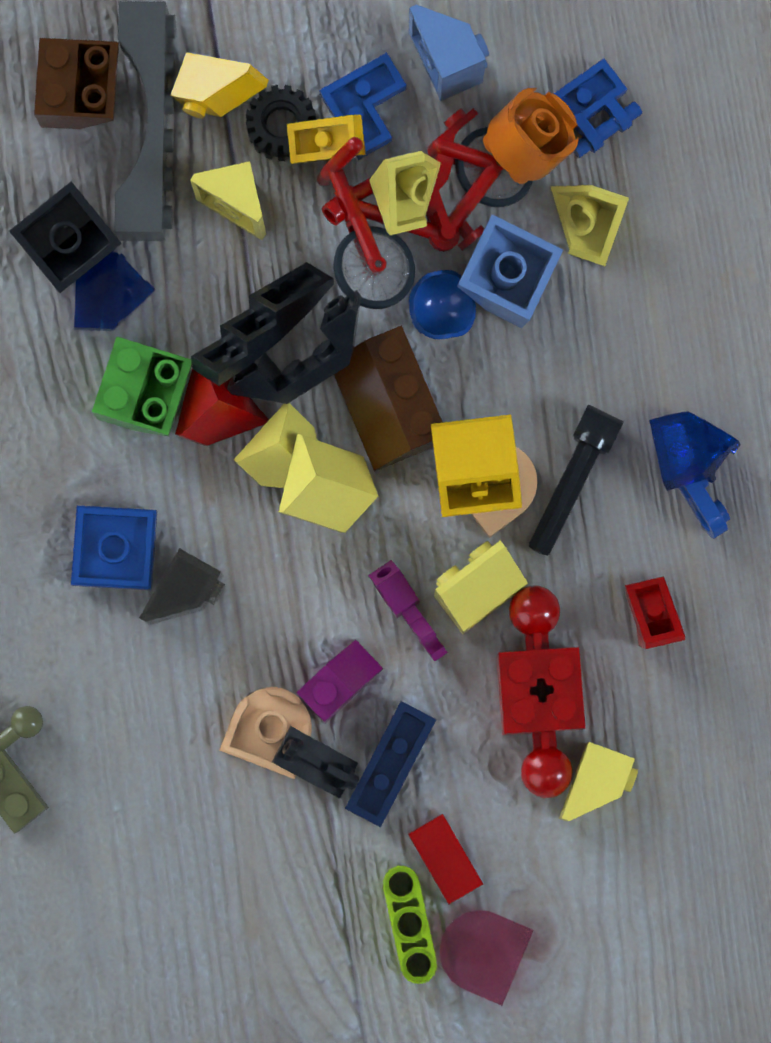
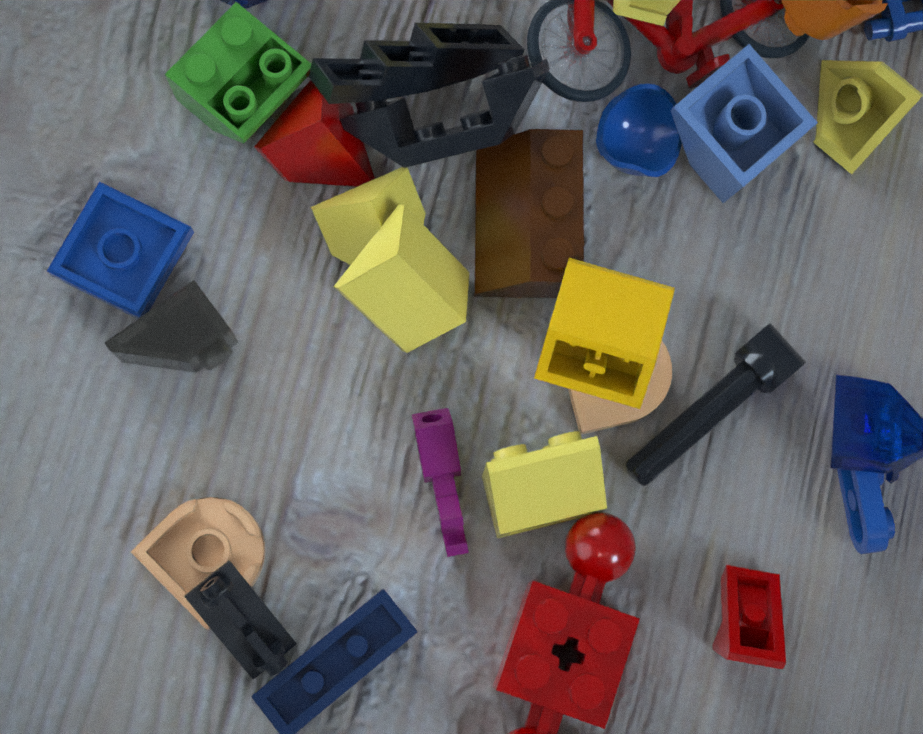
camera: 15 degrees right, 5 degrees down
(339, 681) = (316, 530): magenta slope -> none

